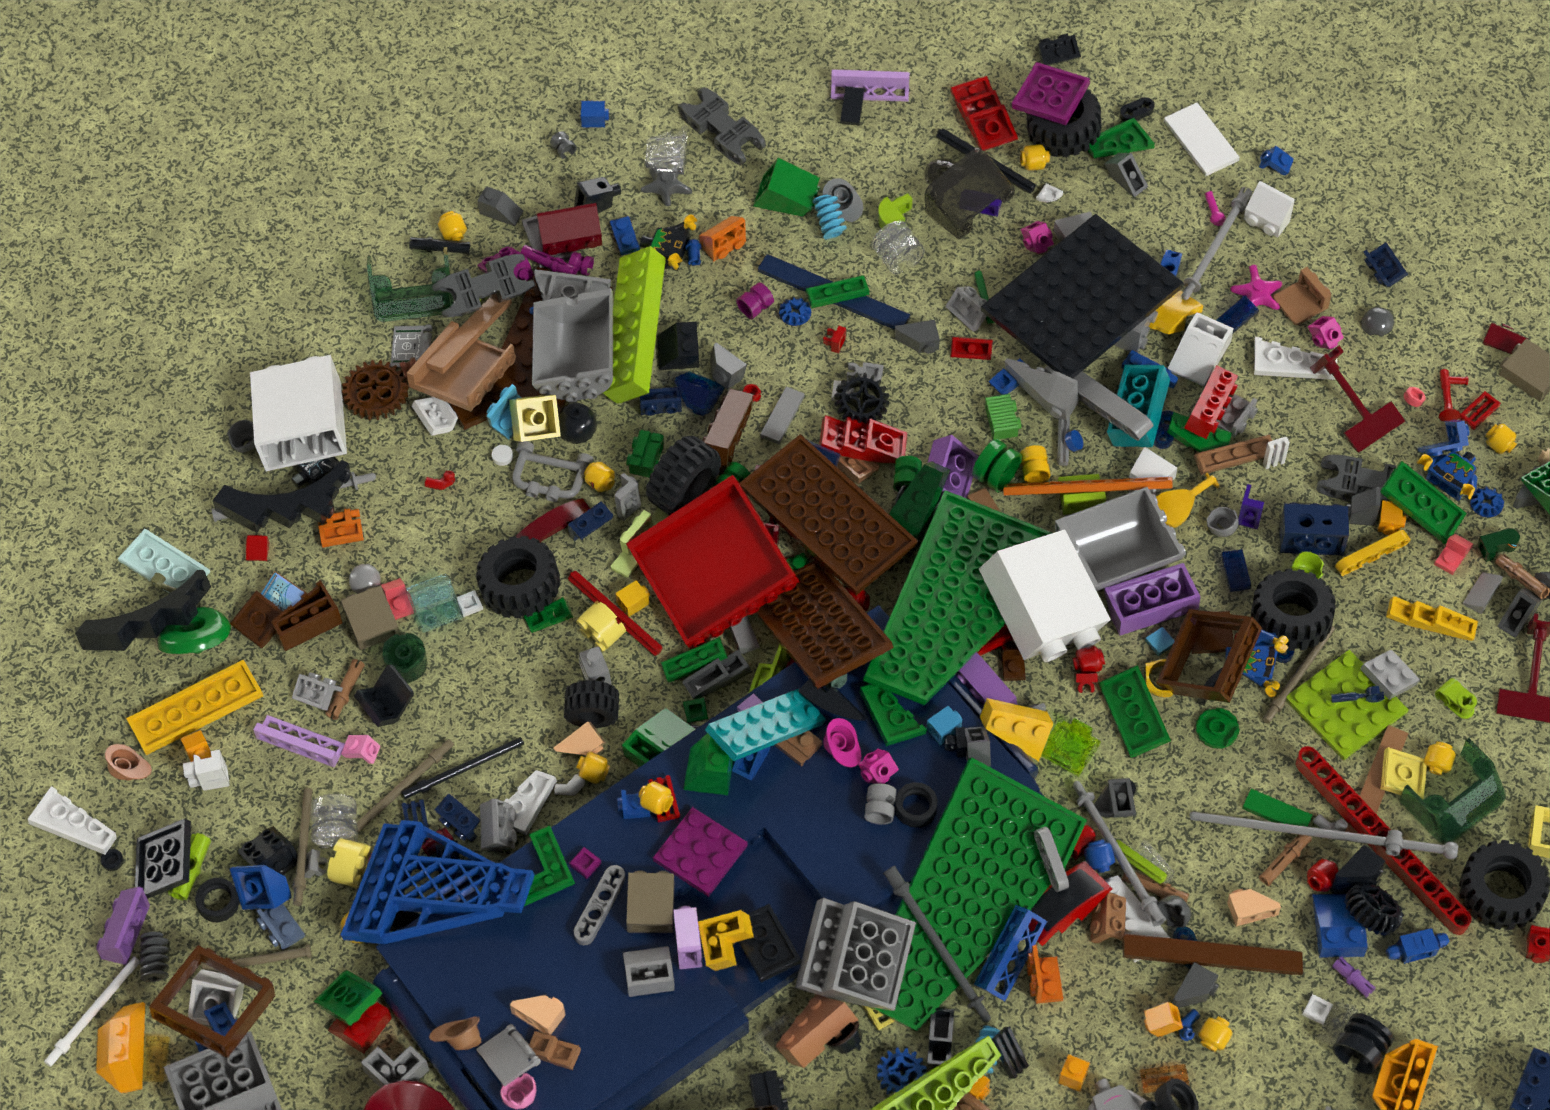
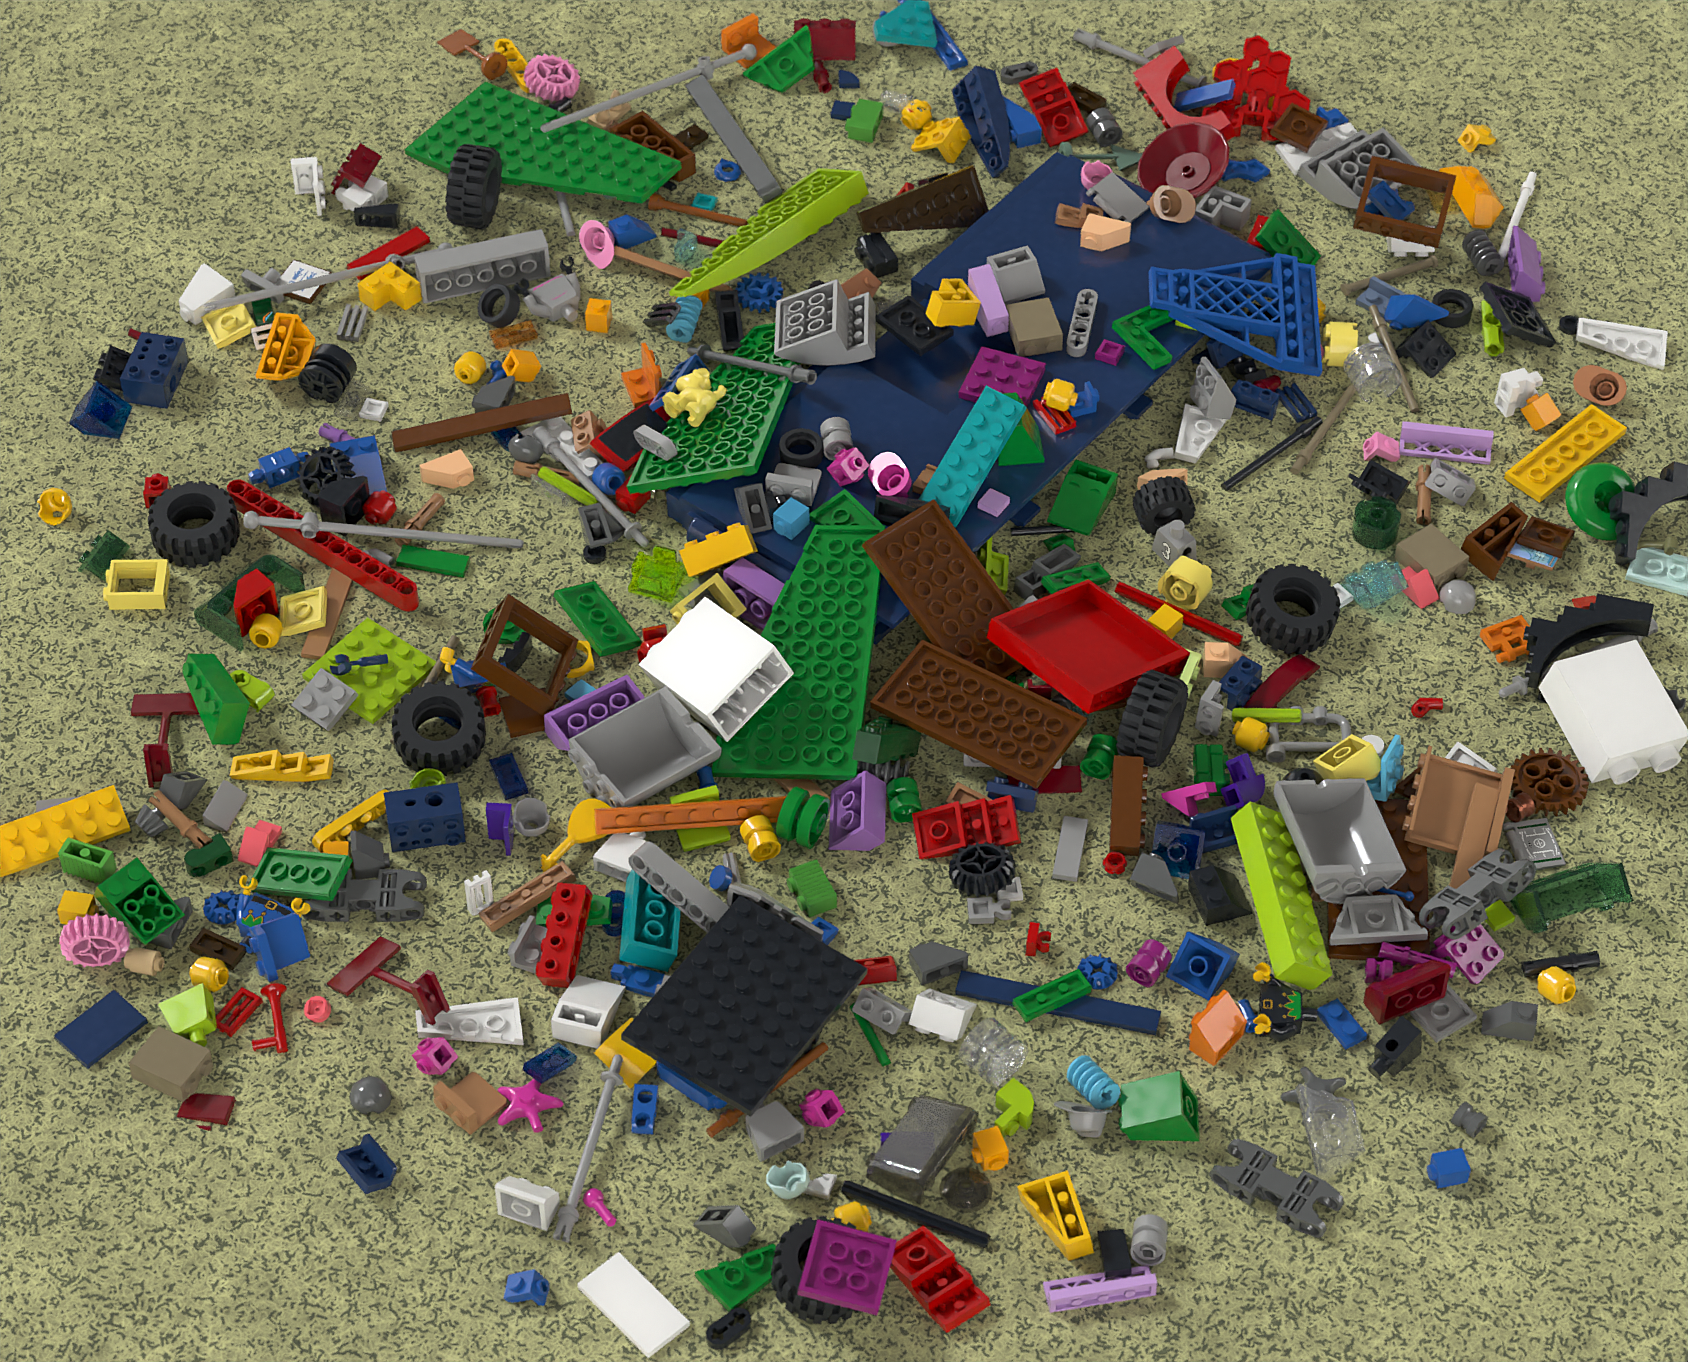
camera: 165 degrees right, 10 degrees down
(577, 488) = (1268, 715): none -> lime axle
(593, 767) = (1139, 464): yellow head -> none
(594, 551) = (1219, 658): none -> light nougat slope
(624, 427) = (1245, 785): none -> dark purple brick
(670, 427) = (1185, 798): none -> dark pink slope
(709, 290) = (1202, 964): none -> blue slope
(826, 101) = (1149, 1240): none -> light grey wheel
(884, 132) = (1058, 1212): none -> yellow wedge
(917, 186) = (990, 1149): none -> light orange brick
(924, 295) = (941, 1014): none -> white slope
(933, 763) = (794, 482): none -> light grey bracket
(1000, 916) = (693, 397): none -> light yellow animal
(1042, 693) = (721, 593): none -> light yellow window
(1074, 192) = (789, 1180): none -> light aqua hair
(1450, 777) = (254, 597): none -> red slope
(1489, 689) = (216, 698): none -> green wedge
(1493, 462) = (218, 947): none -> dark brown plate
(1517, 403) = (191, 1014): none -> lime torso

